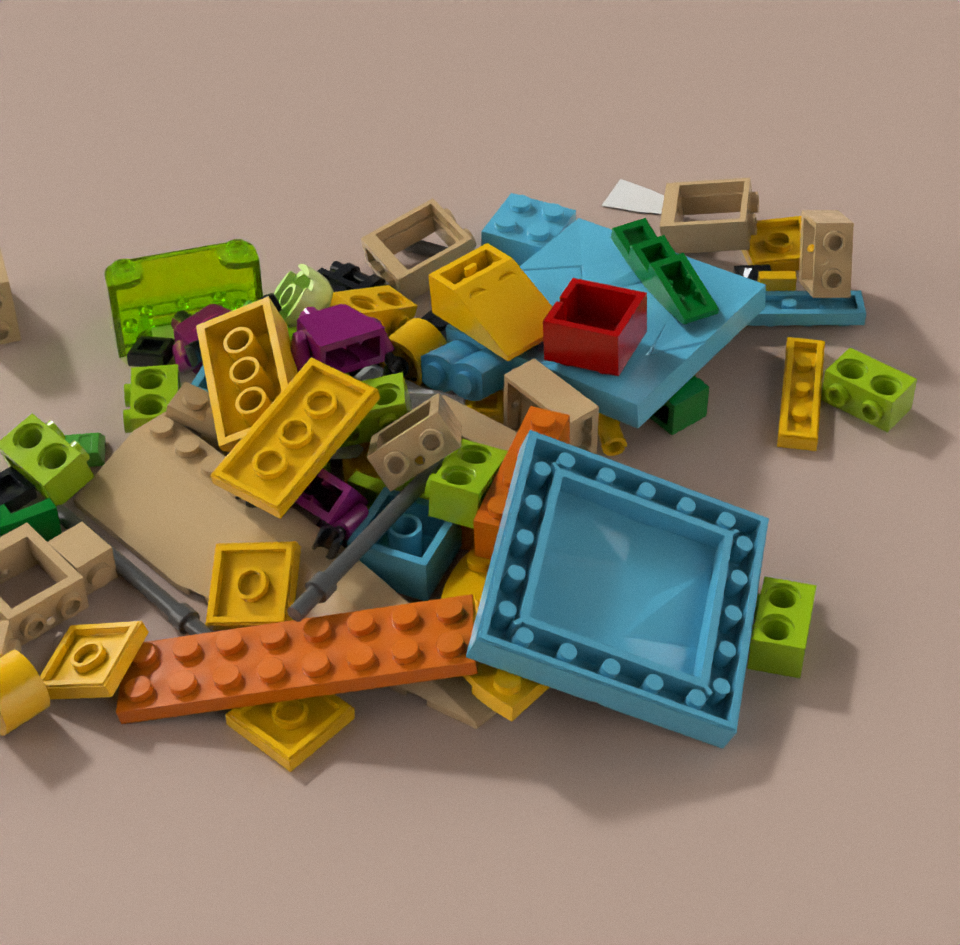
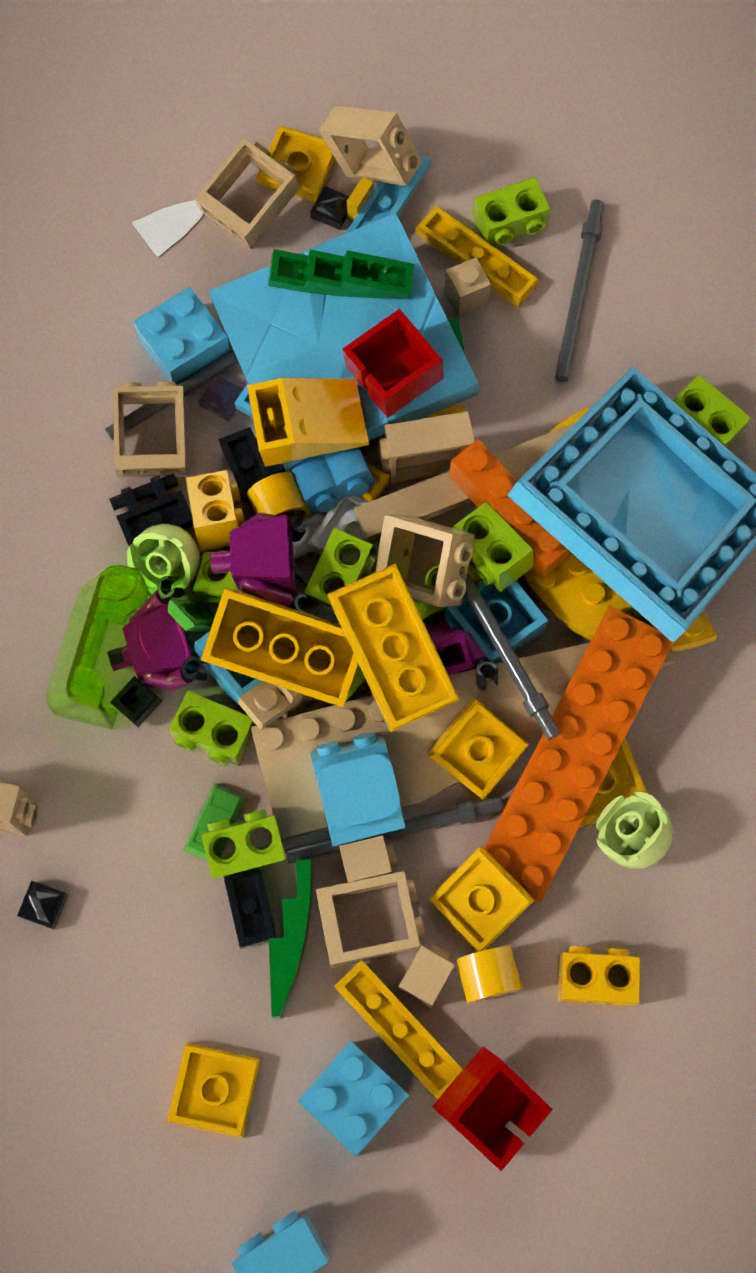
camera: 60 degrees left, 30 degrees up
(54, 792) = (599, 988): none -> yellow brick
(147, 505) = (357, 788): none -> medium azure brick
(237, 749) = (635, 831): none -> yellowish green cylinder
(754, 389) = (467, 286): none -> tan brick
(908, 459) = (590, 234): none -> dark grey bar

